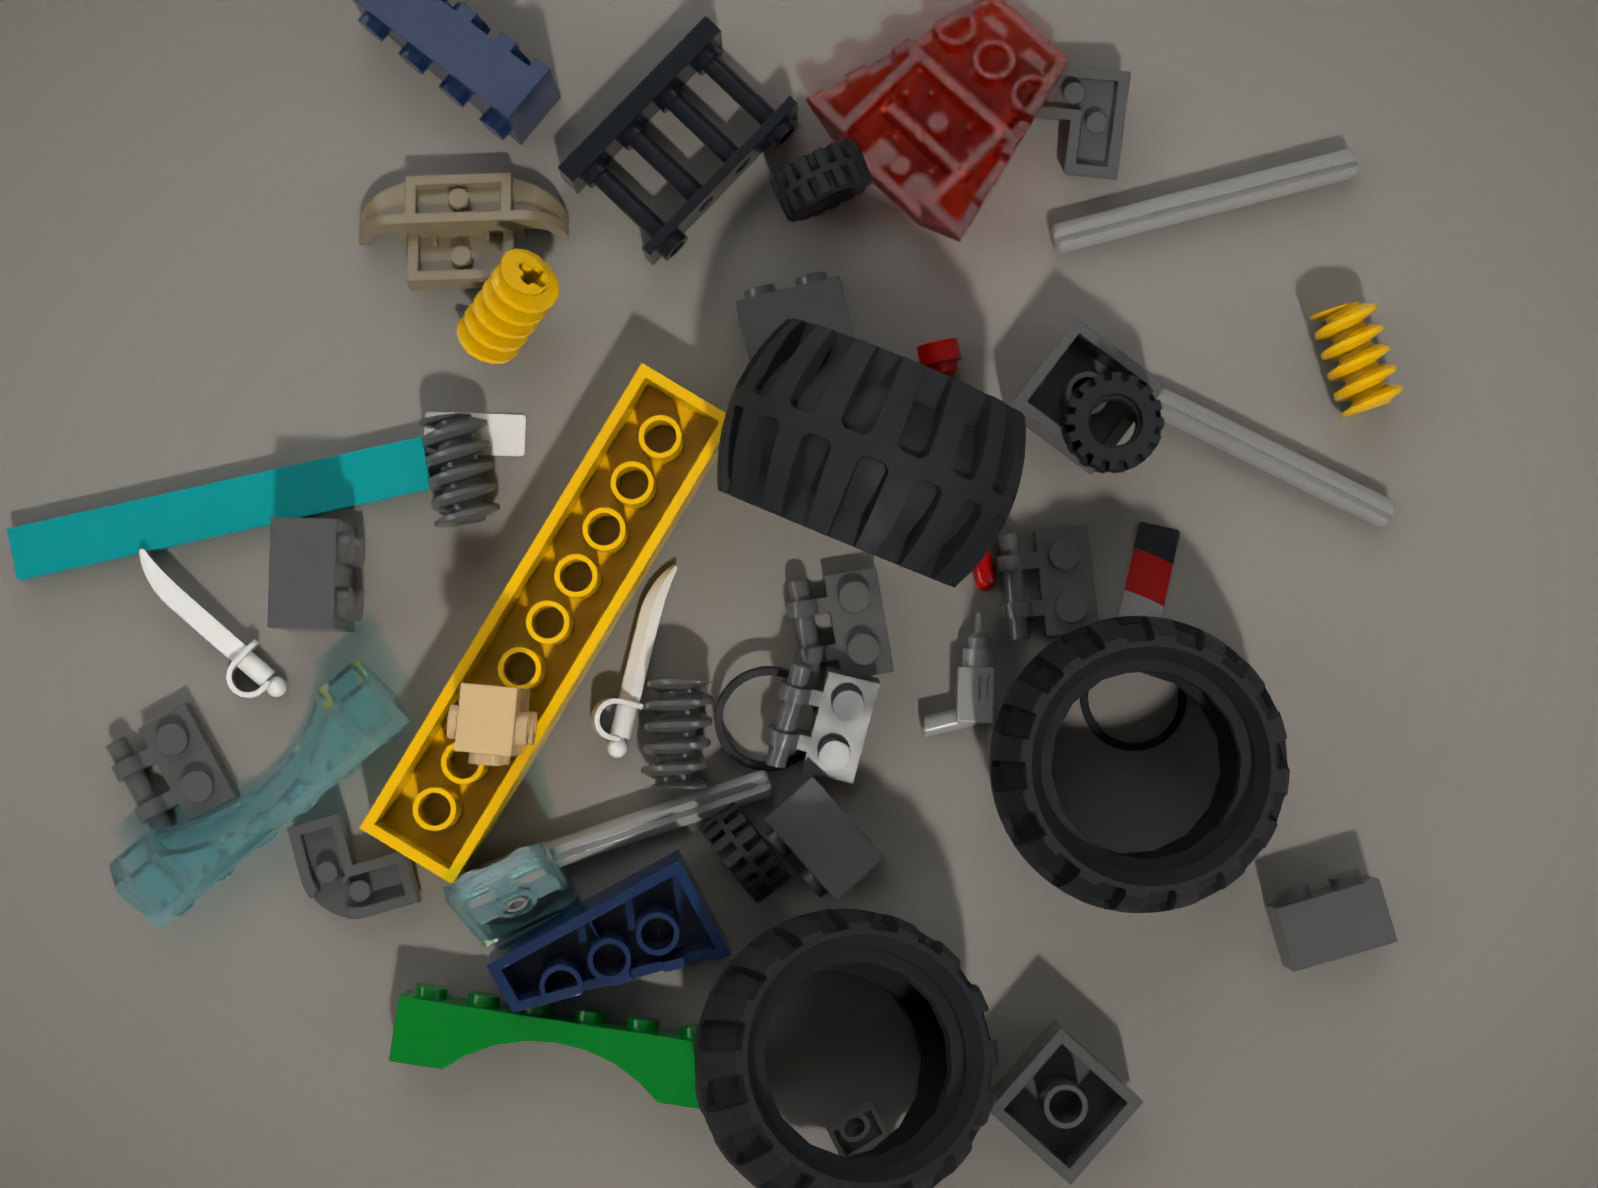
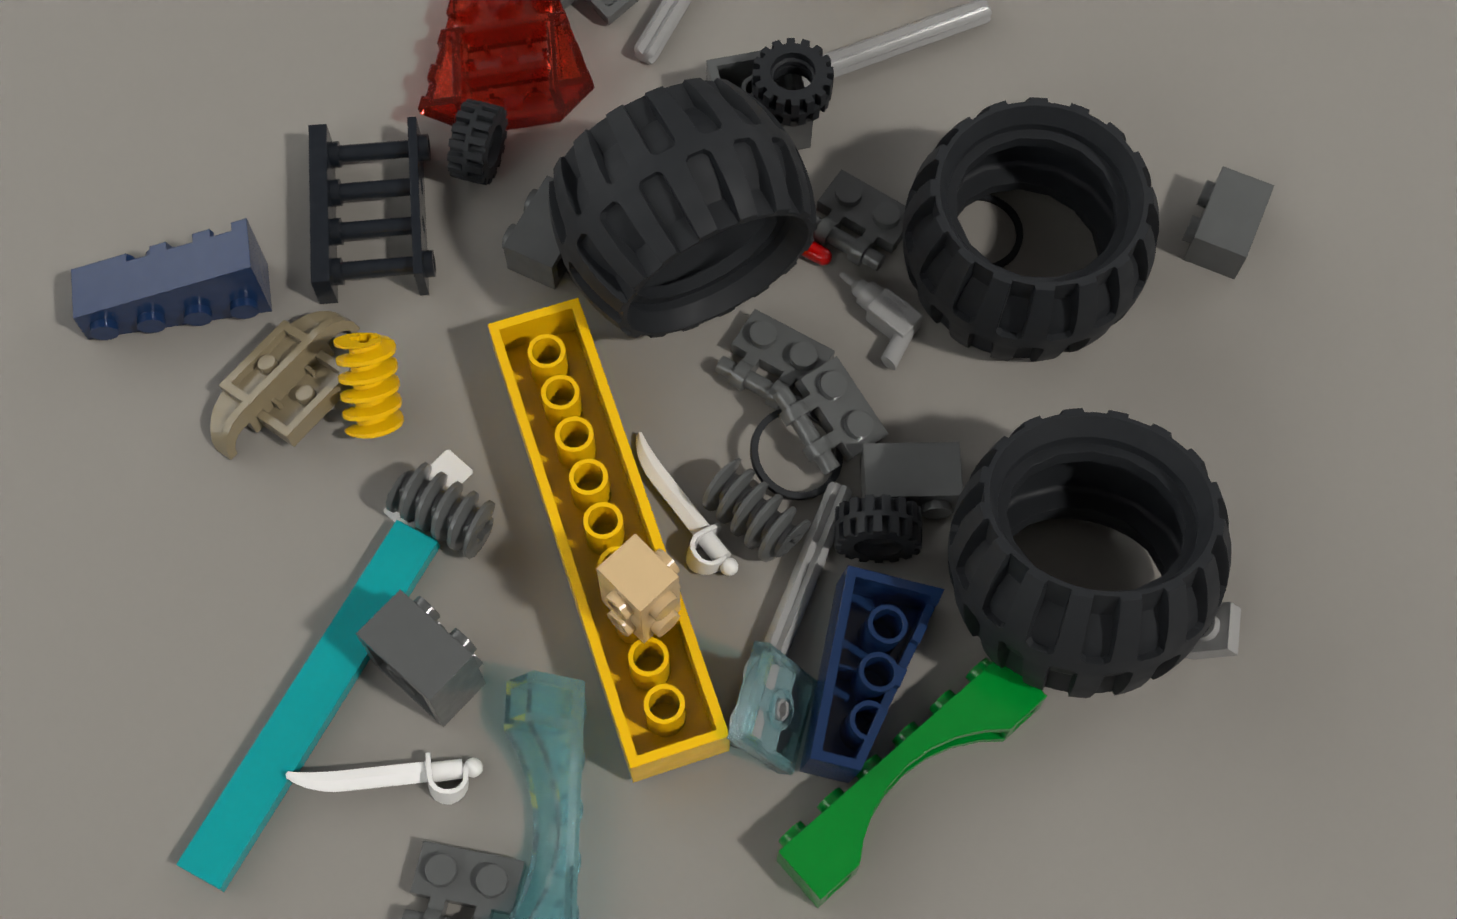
camera: 50 degrees left, 20 degrees down
(341, 884) = (657, 836): dark grey plate -> none
(1063, 1102) = (1239, 455): dark grey brick -> none
(1149, 571) = (896, 157): sticker -> none

